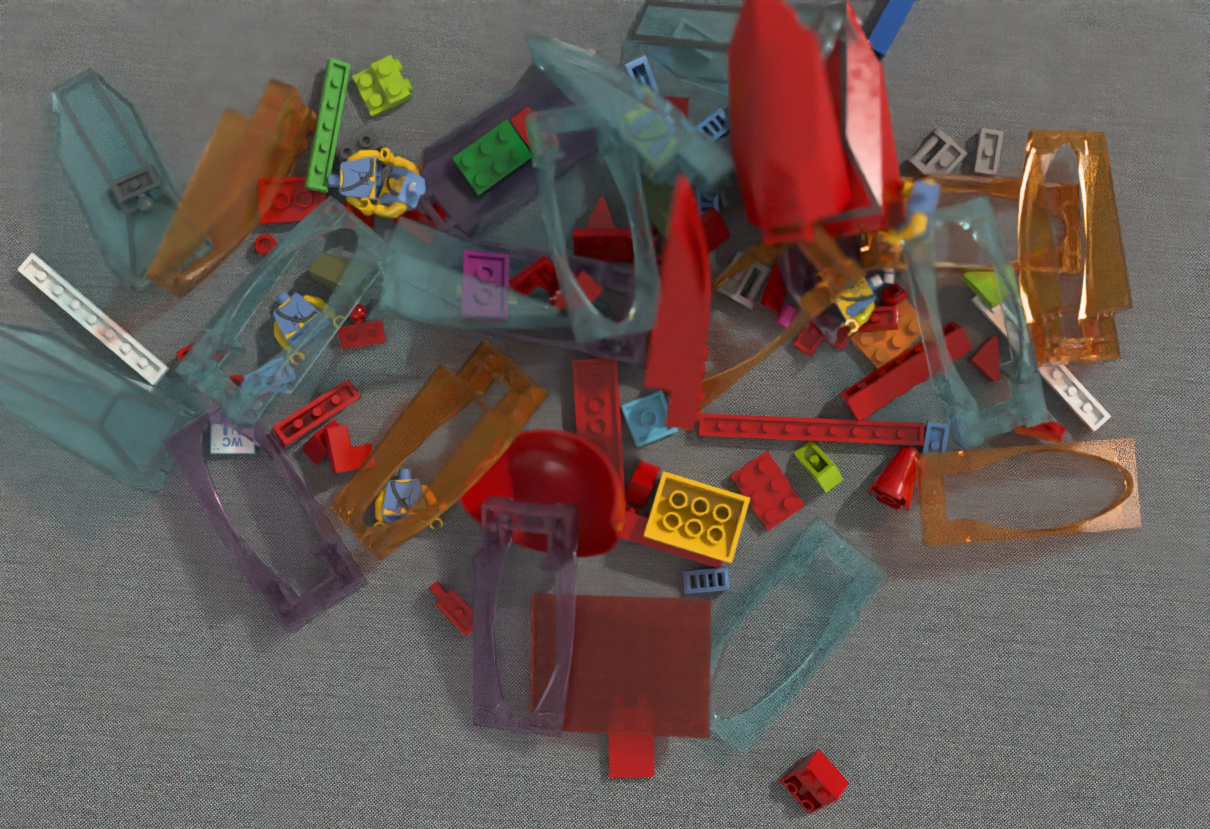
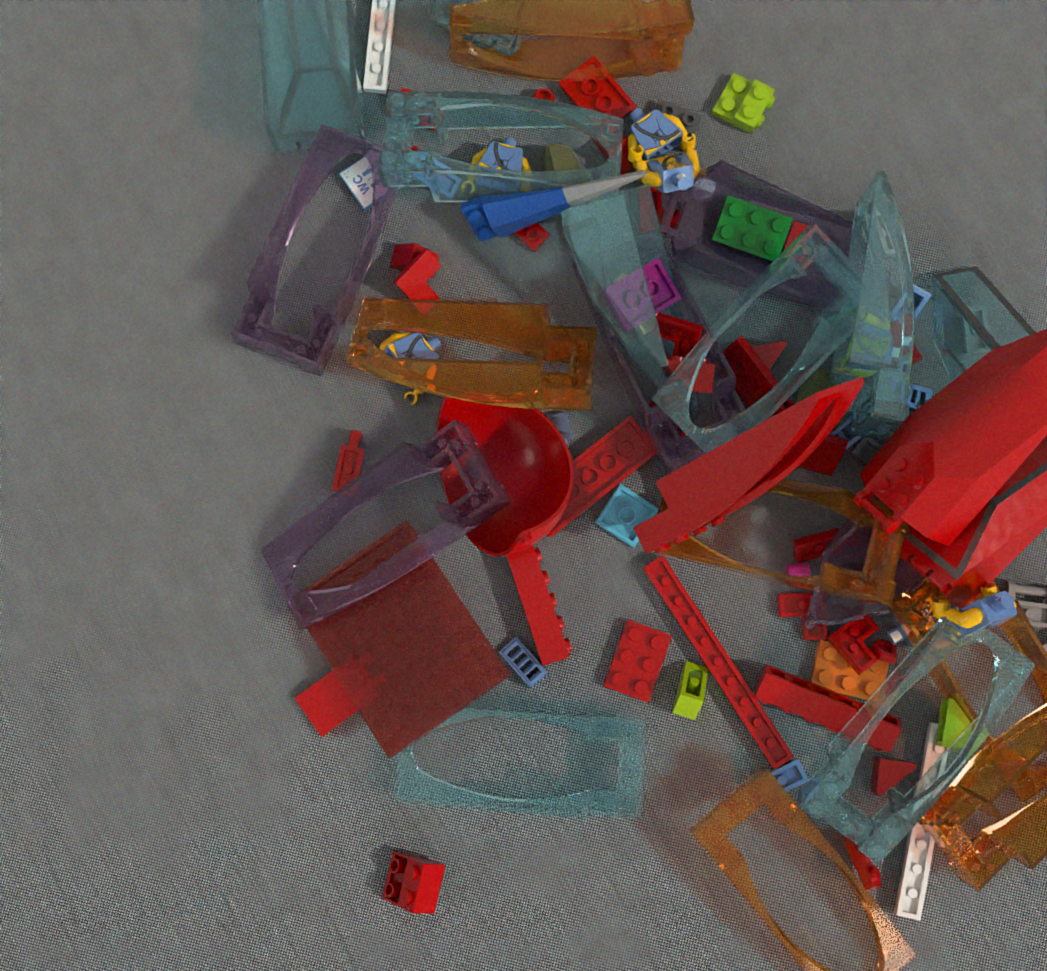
camera: 50 degrees right, 5 degrees down
(314, 414) = (430, 234): red slope -> none
(327, 125) = (678, 79): bright green tile -> none
(345, 338) = (511, 212): none -> blue plate
(543, 420) = (562, 424): none -> sand blue bracket
(641, 484) = (566, 548): red slope -> none
(696, 517) = (572, 613): yellow slope -> none
(734, 286) = (794, 507): light grey plate -> none
(858, 301) = (858, 620): torso -> none
(897, 480) = (727, 767): red cone -> none

